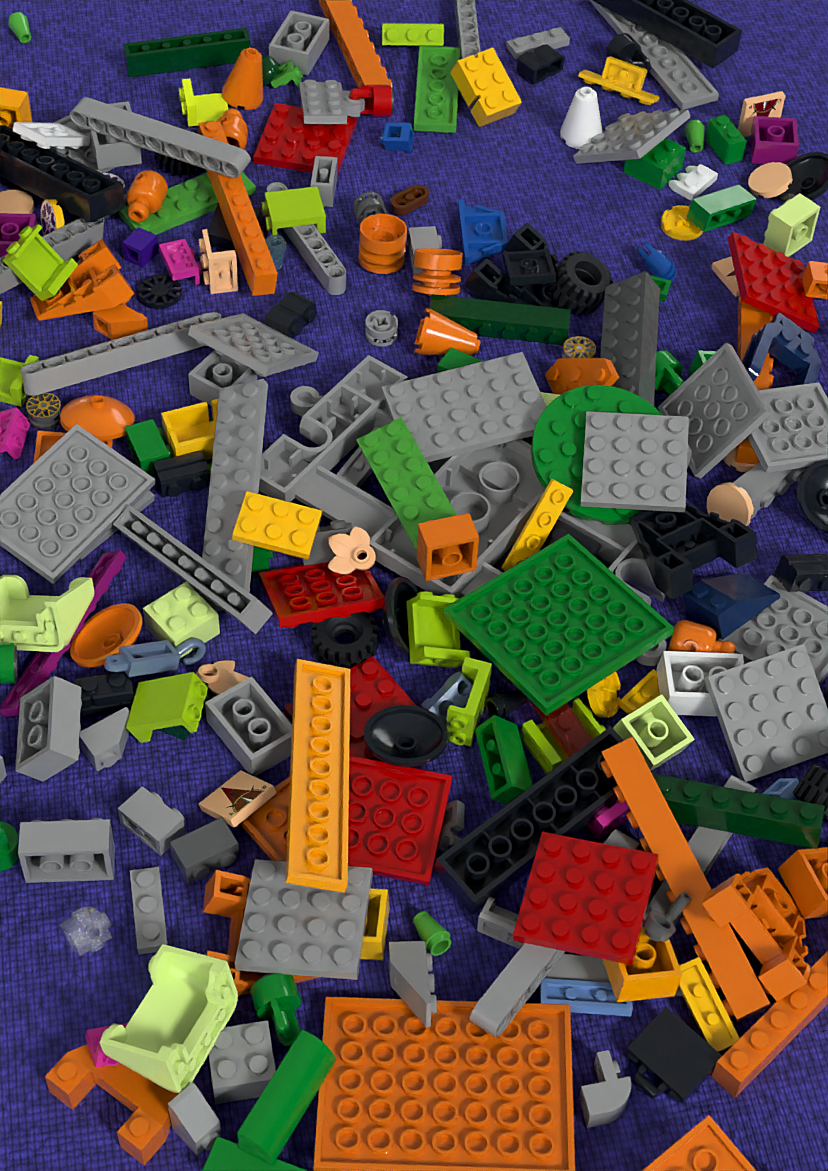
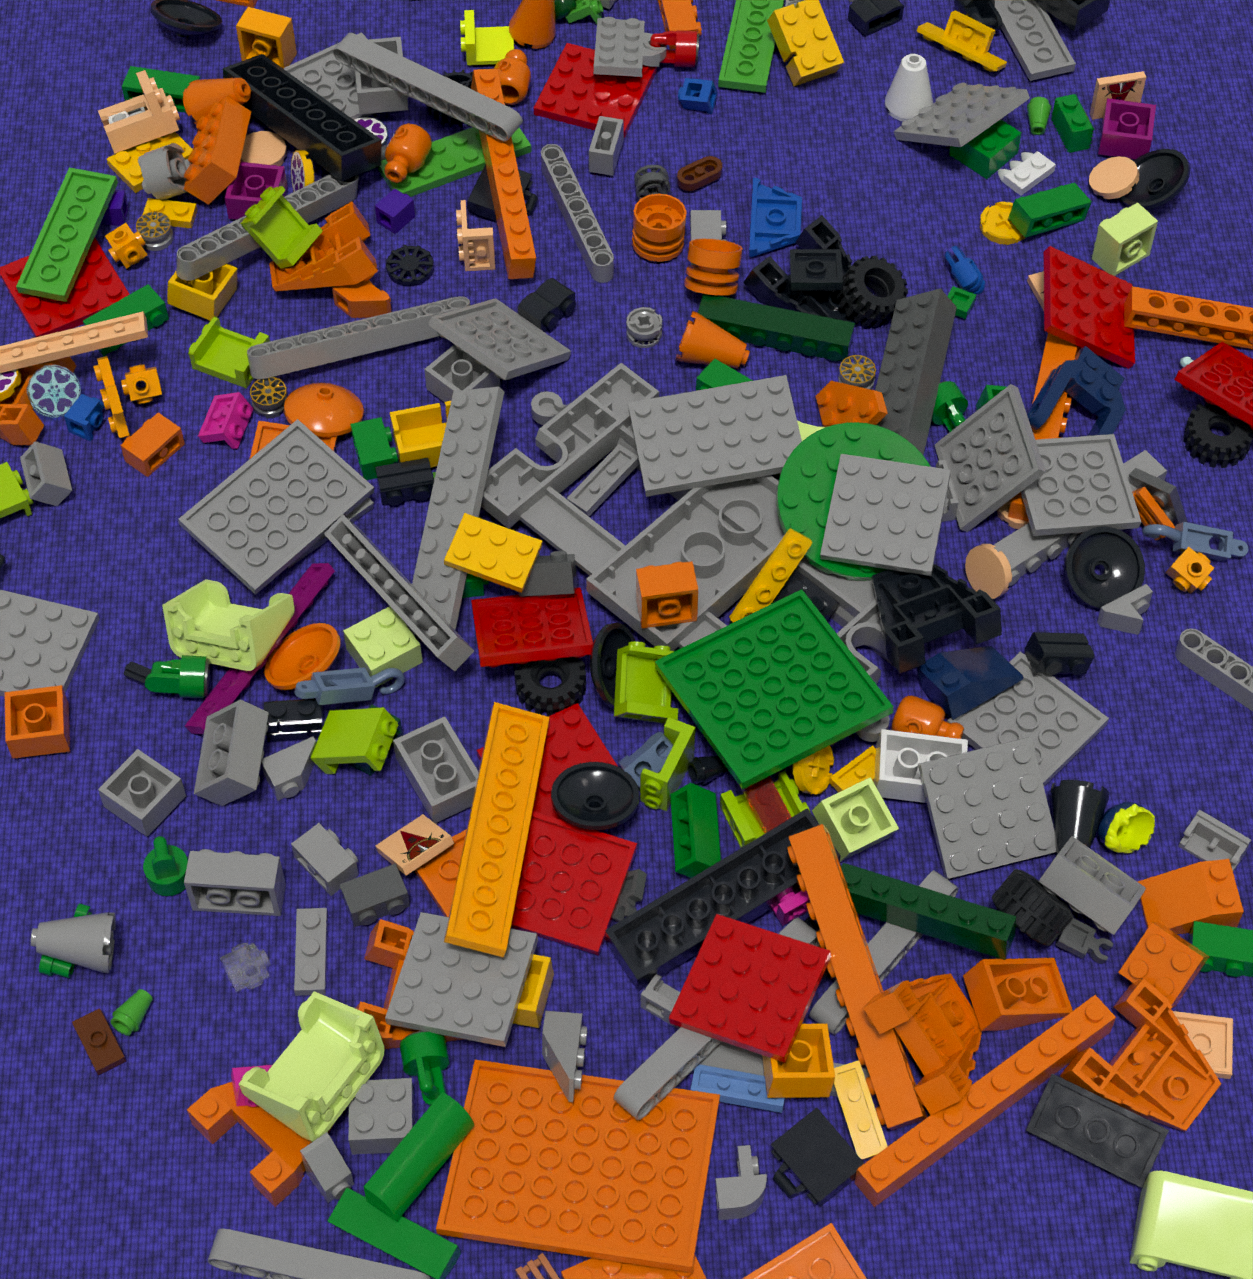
camera: 10 degrees right, 5 degrees up
(51, 135) = (312, 71): white plate -> none
(181, 260) = (435, 231): dark pink bracket -> none
(220, 676) = (415, 710): light nougat plate -> none
(277, 249) = (540, 227): clear light blue cone -> none
(293, 209) = (567, 179): lime panel -> none
(347, 551) = (564, 586): light nougat plate -> none
(405, 476) = (637, 509): bright green plate -> none
(435, 936) = (592, 1006): bright green cone -> none
(660, 926) = (821, 1025): dark grey plate -> none
(783, 788) = (982, 892): light blue plate -> none

